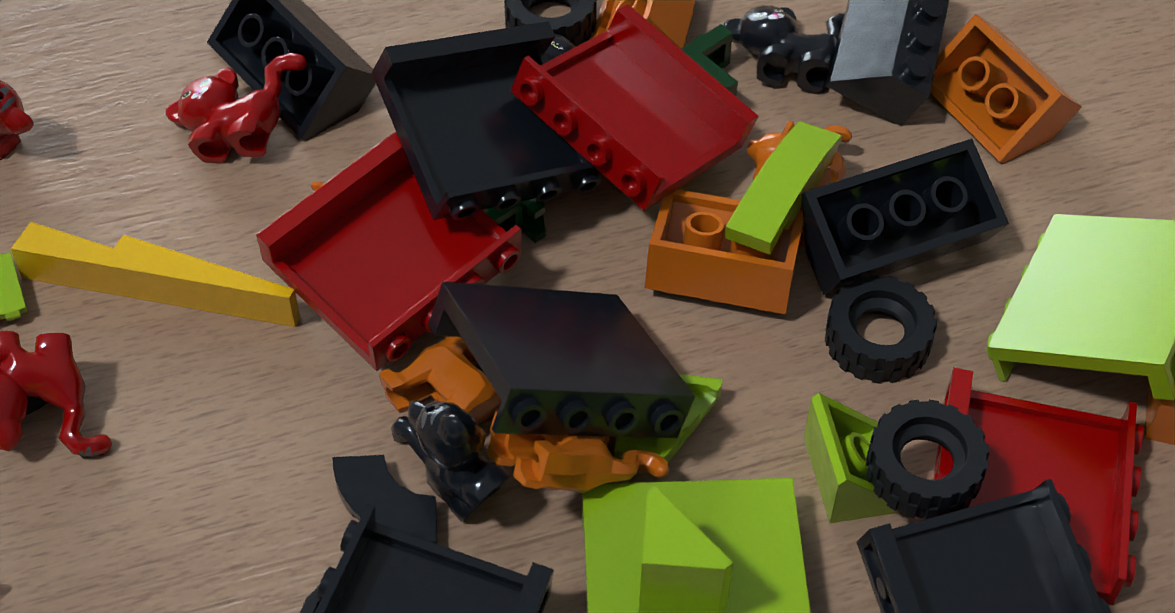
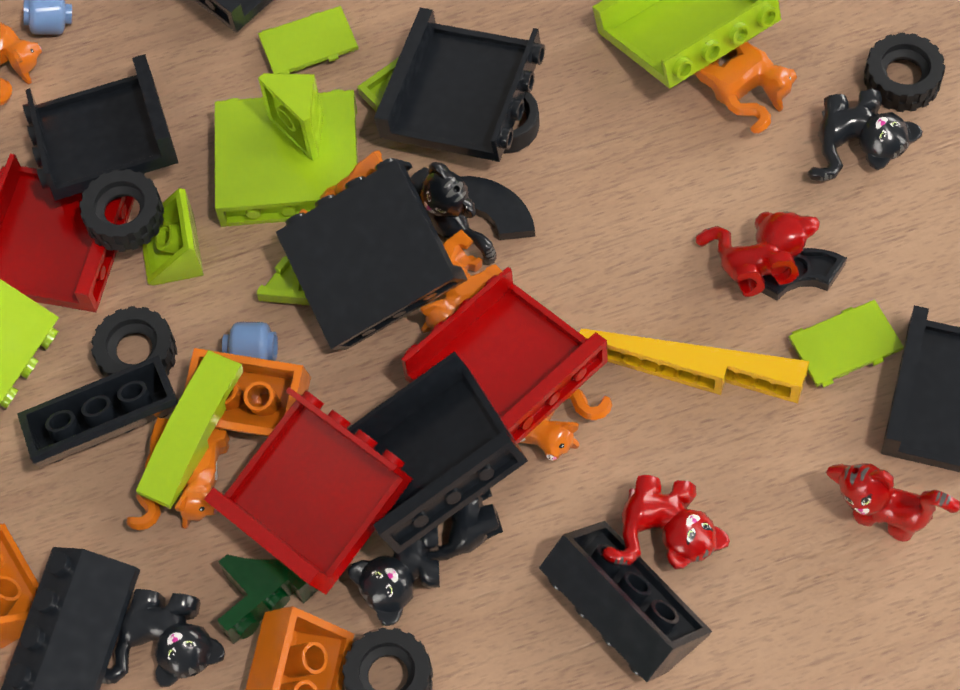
camera: 175 degrees left, 10 degrees up
(725, 322) = (251, 340): none -> medium blue head

